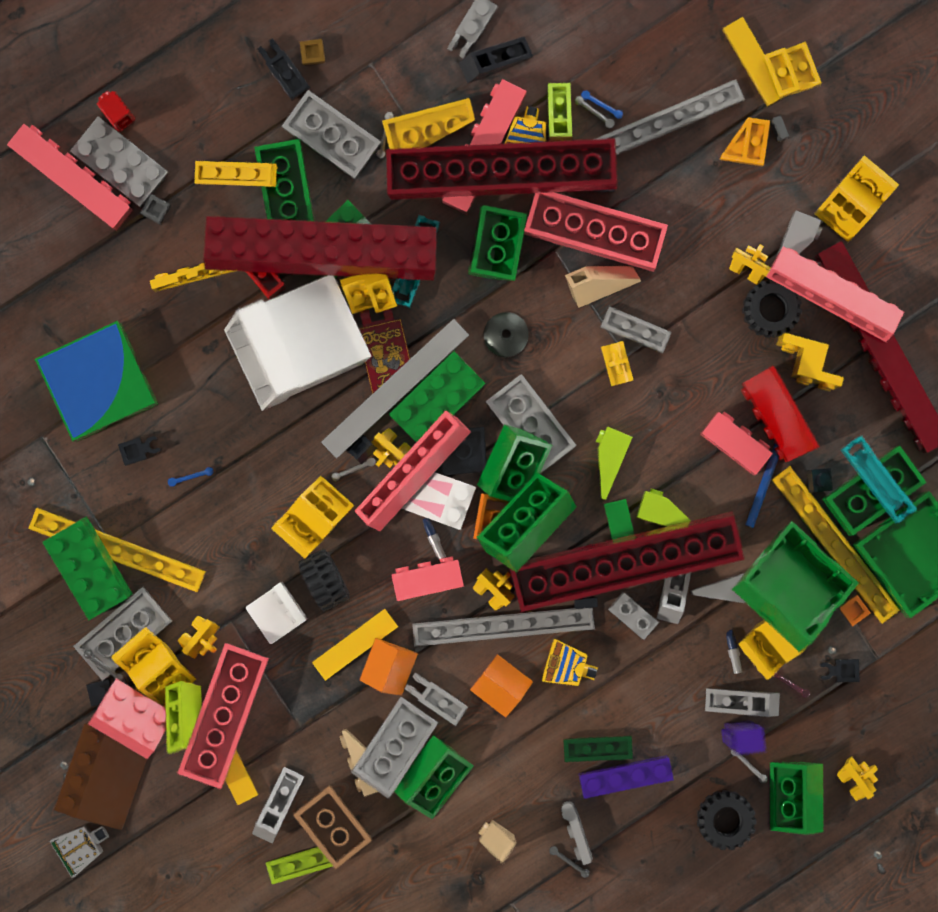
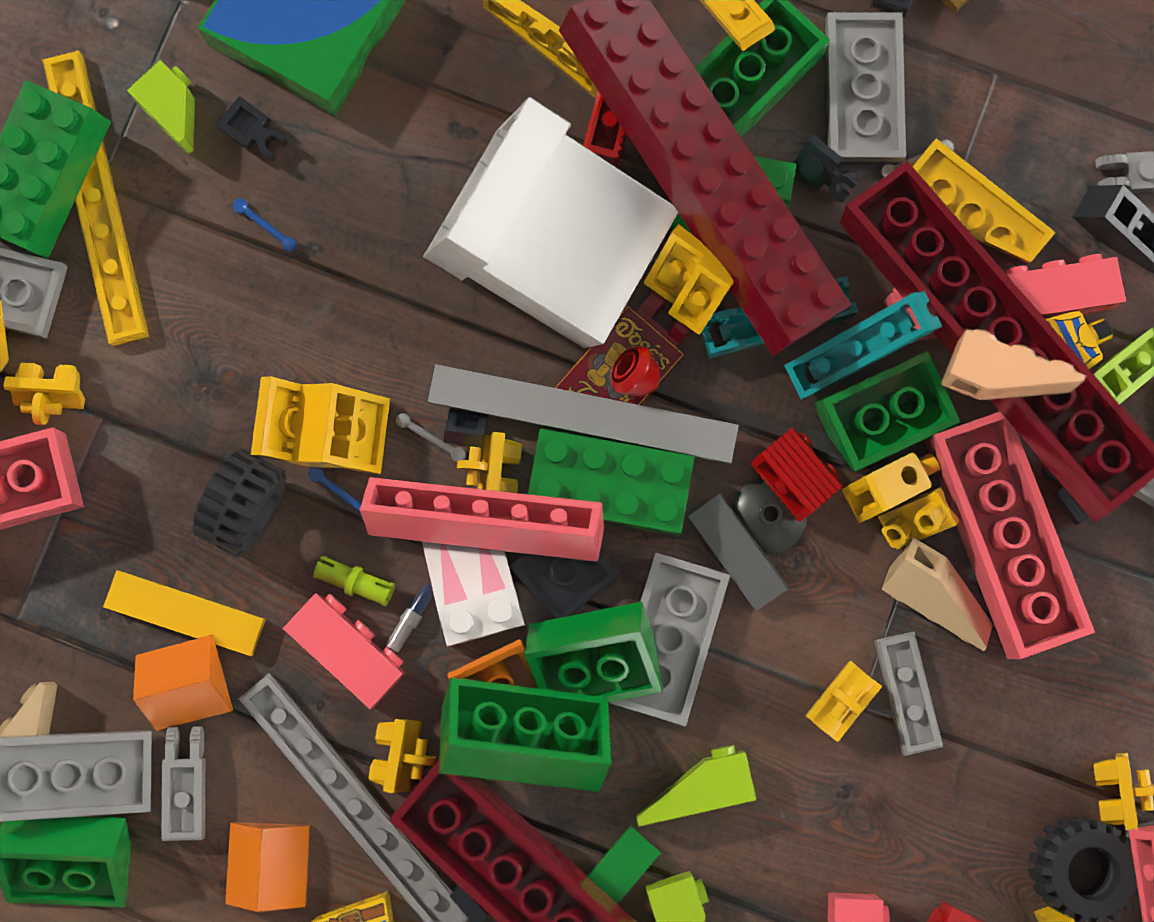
camera: 50 degrees right, 5 degrees down
(96, 481) = (168, 102): none -> lime slope
(276, 613) = (154, 472): white bracket -> none
(333, 536) = (318, 475): none -> blue hinge
(355, 185) = (819, 166): none -> black plate
(394, 349) = (635, 372): none -> red cone
(397, 553) = (354, 580): none -> lime pin
(458, 234) = (862, 345): none -> teal piece
(496, 307) = (797, 474): none -> red brick
(512, 361) = (738, 552): none -> dark grey tile
(515, 187) = (996, 370): none -> light nougat slope
(533, 272) = (891, 485): none -> yellow torso
(557, 267) = (917, 519): none -> yellow hips

